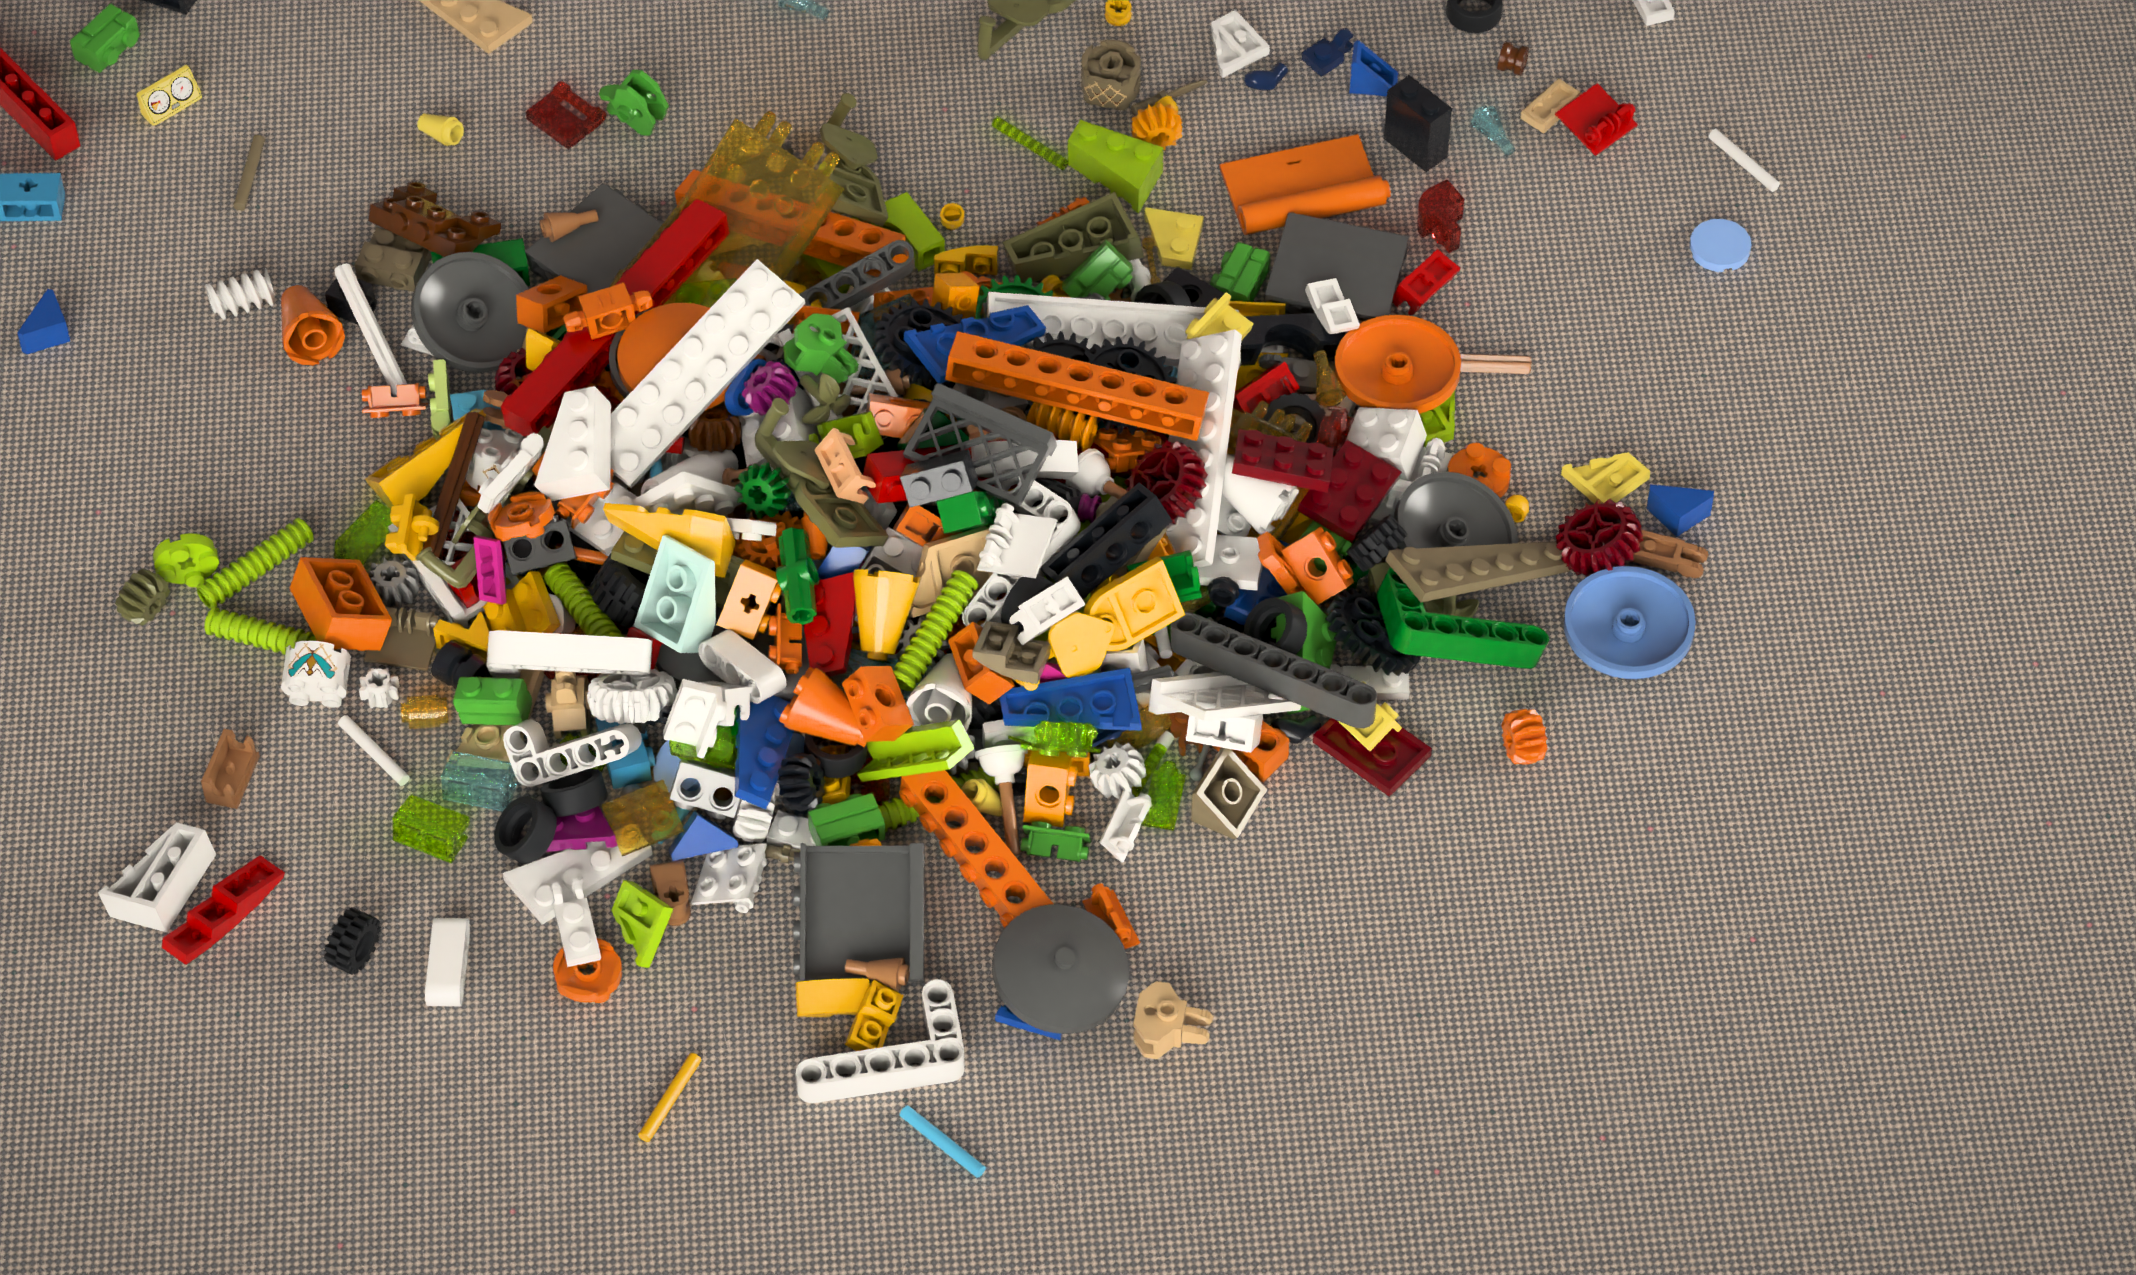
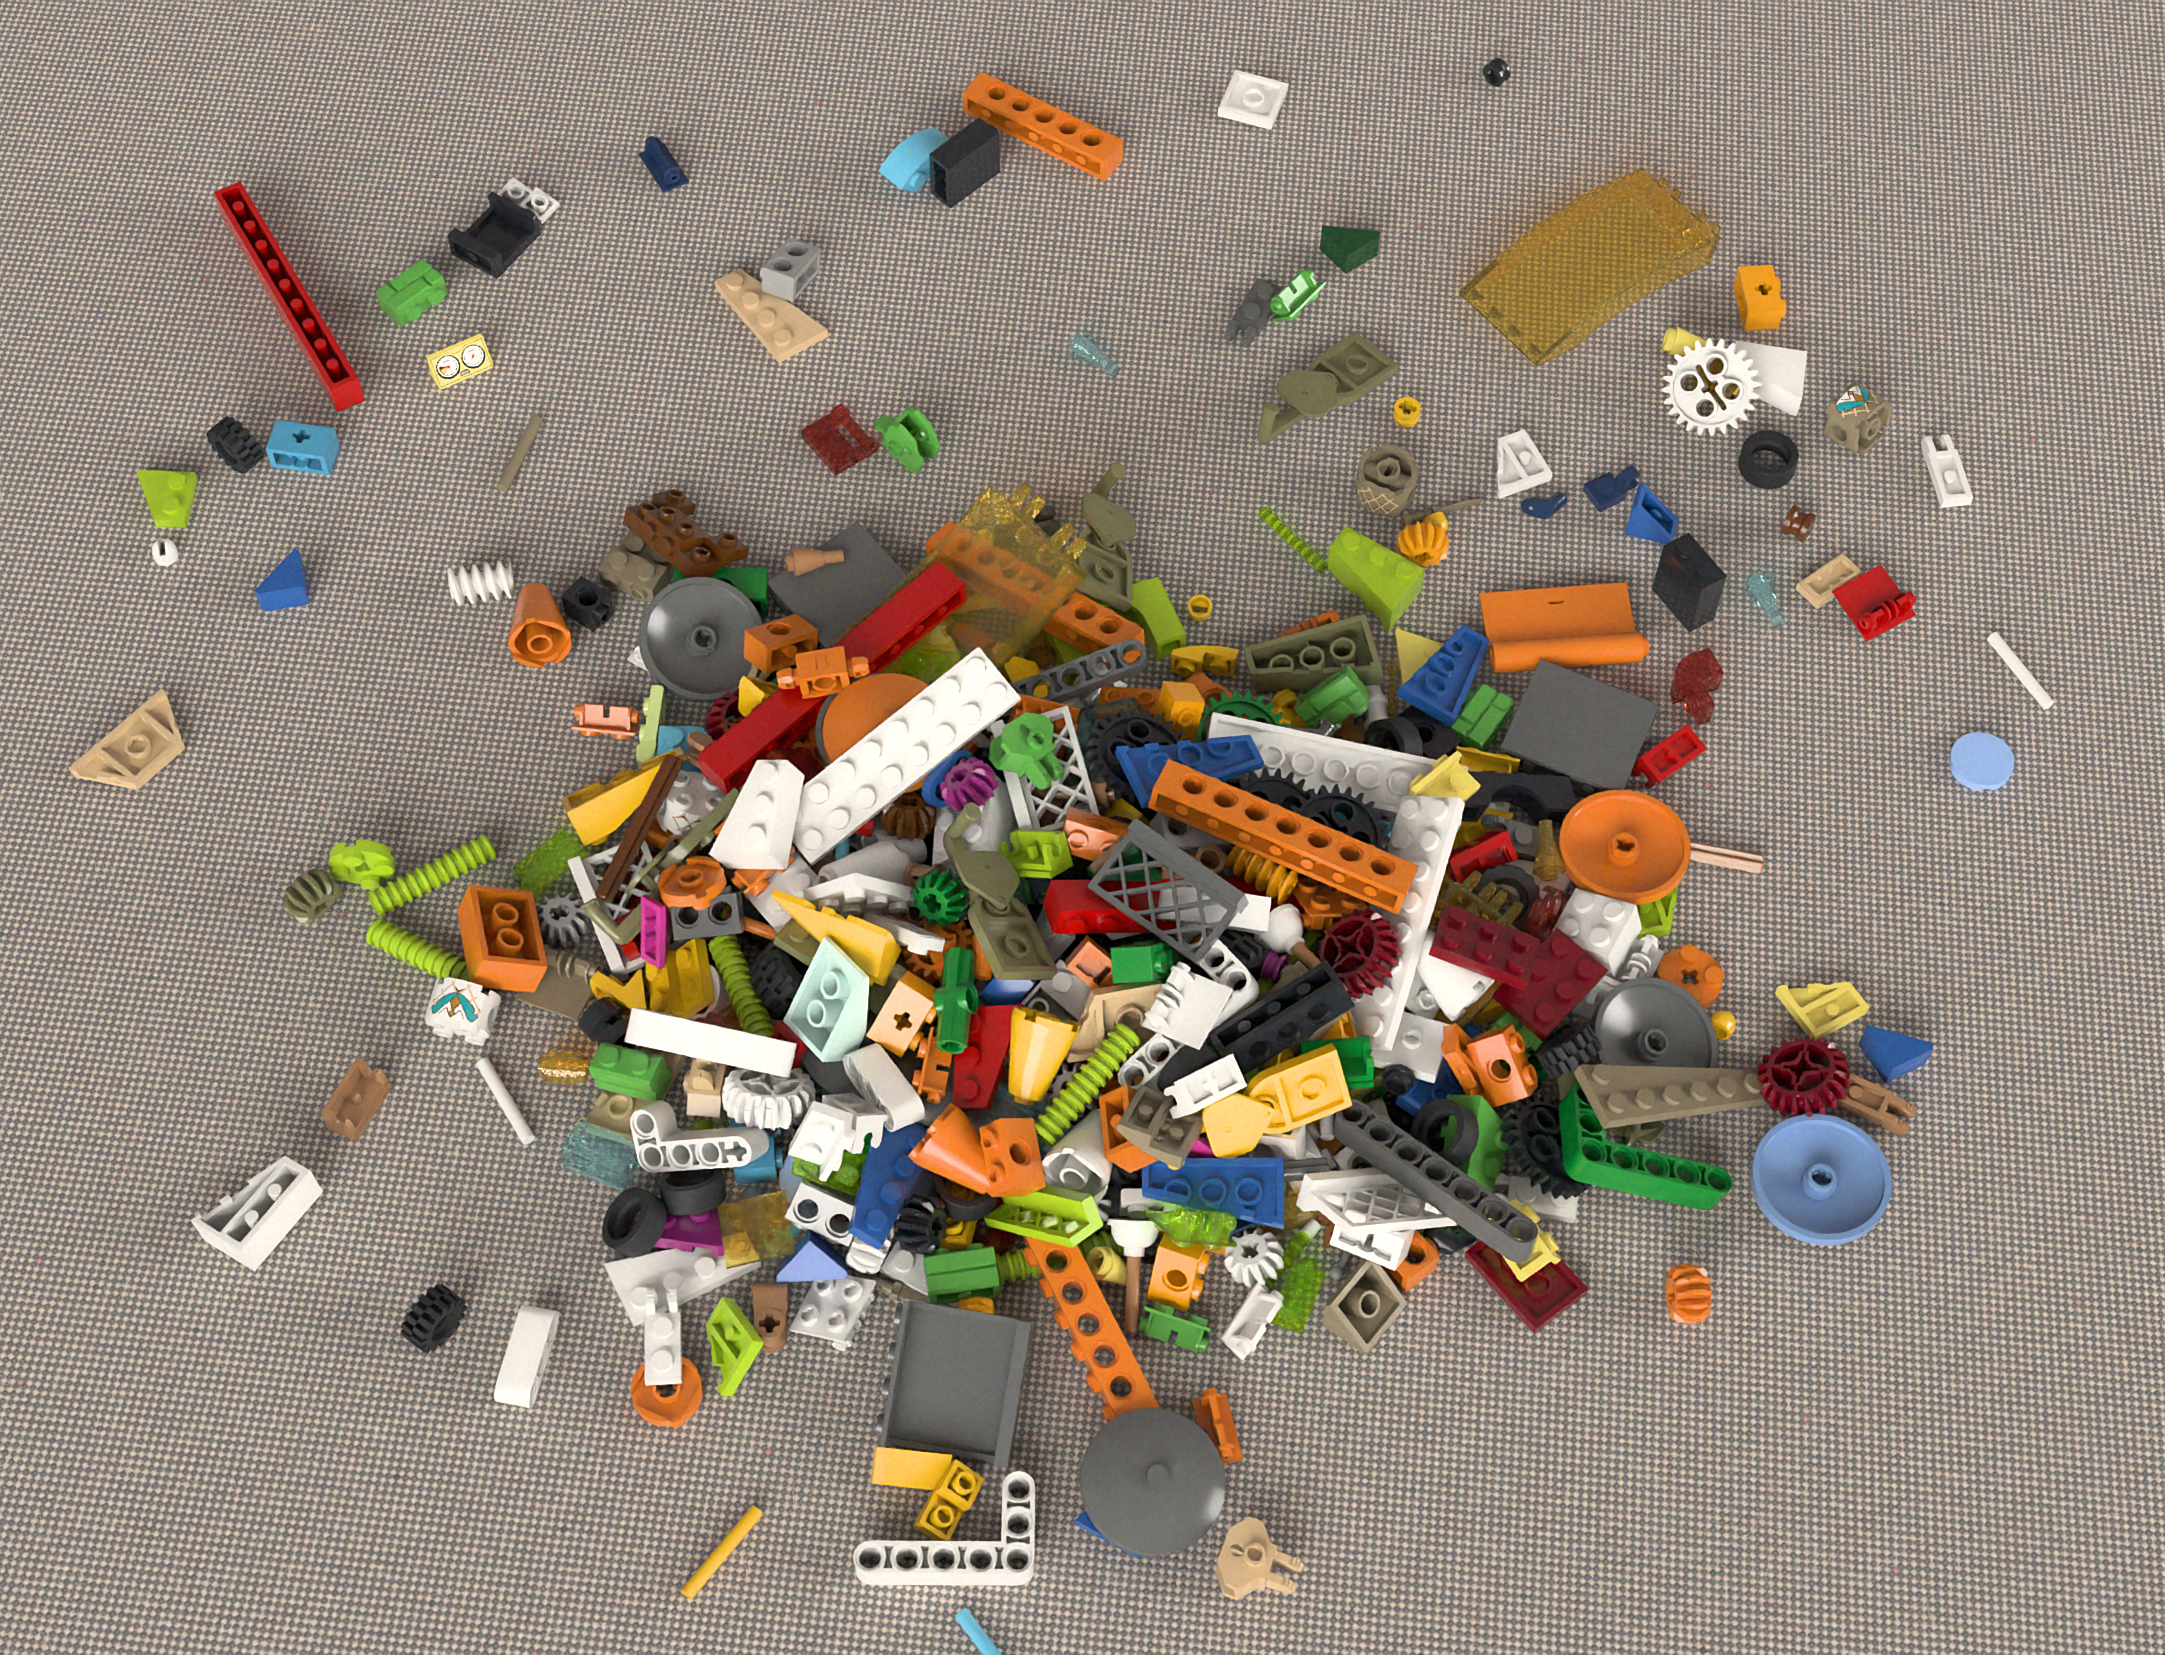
camera: 10 degrees right, 5 degrees up
(225, 909) = (315, 1257): red slope -> none
(369, 327) = (597, 639): white axle -> none
(379, 688) = (521, 1025): white gear -> none
(414, 526) = (589, 869): yellow hips -> none
(430, 828) = (541, 1200): clear neon green hinge -> none
(442, 128) = (715, 436): light yellow cone -> none
(511, 473) = (689, 835): white hinge -> none
(826, 394) = (1025, 800): olive plant -> none
(842, 468) = (1022, 891): light nougat hinge -> none
(888, 972) = (972, 1452): medium nougat cone -> none
(939, 478) = (1117, 923): brick -> none
(1202, 240) = (1447, 676): none -> blue wing
(1330, 307) = (1565, 772): white slope -> none

